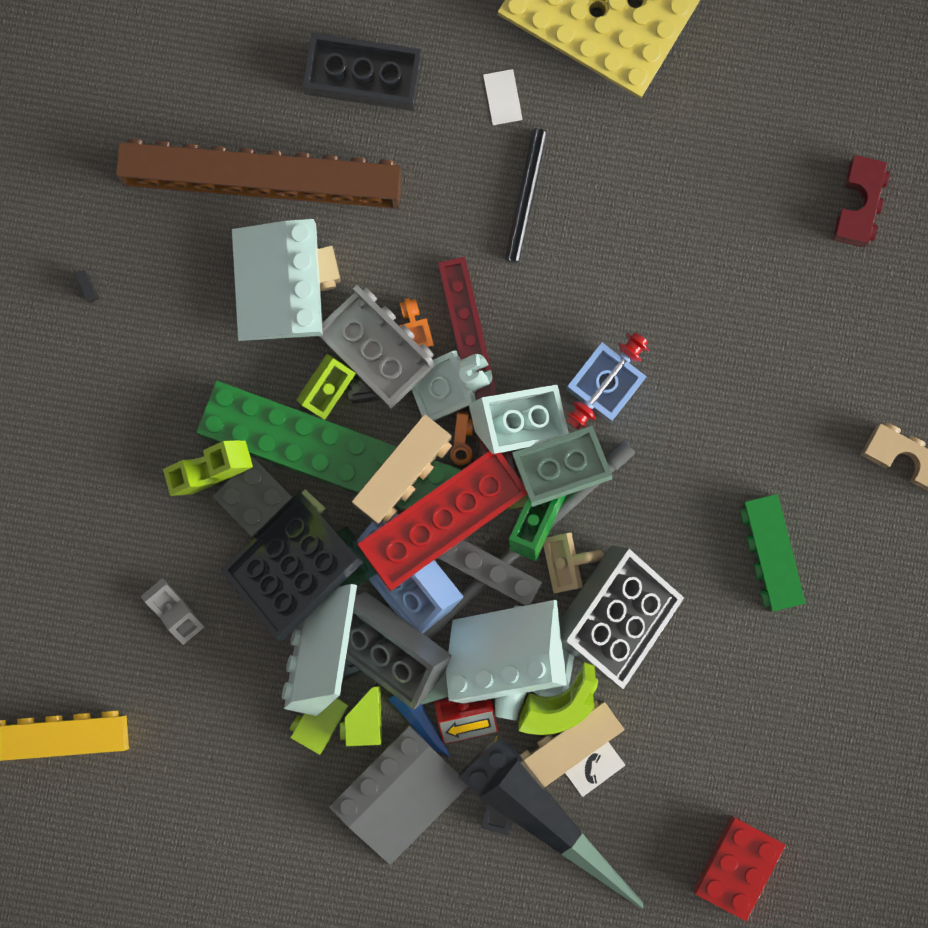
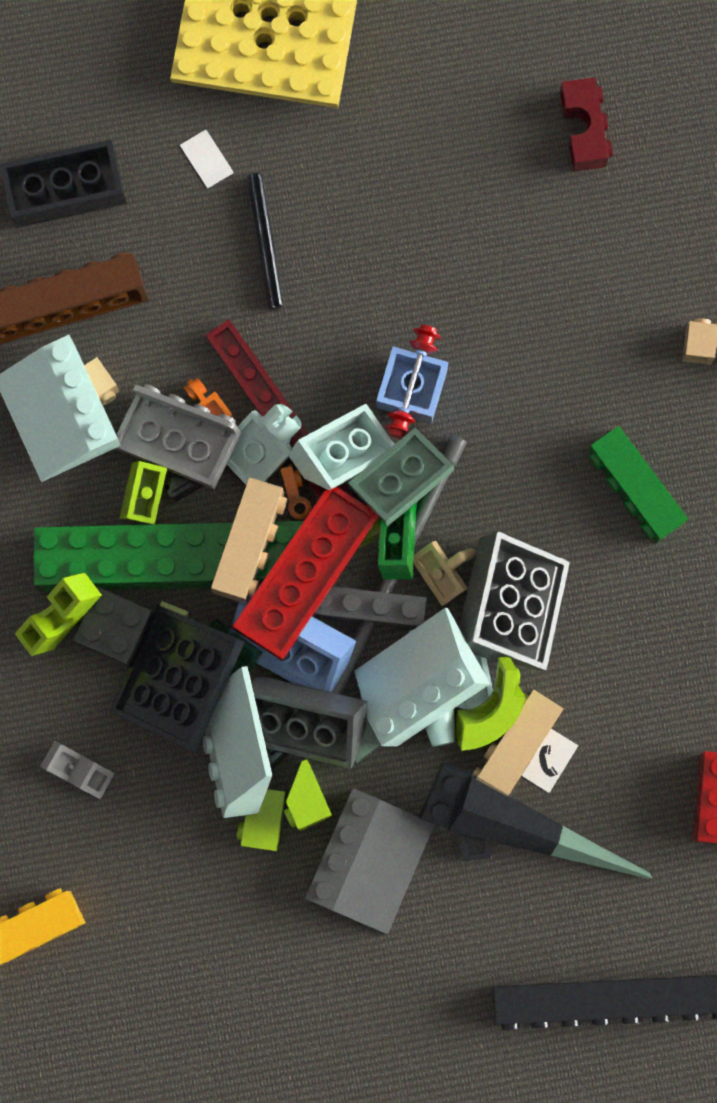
camera: 20 degrees left, 5 degrees down
(421, 722) = (360, 780): blue bar -> none
(465, 720) = (406, 762): panel -> none

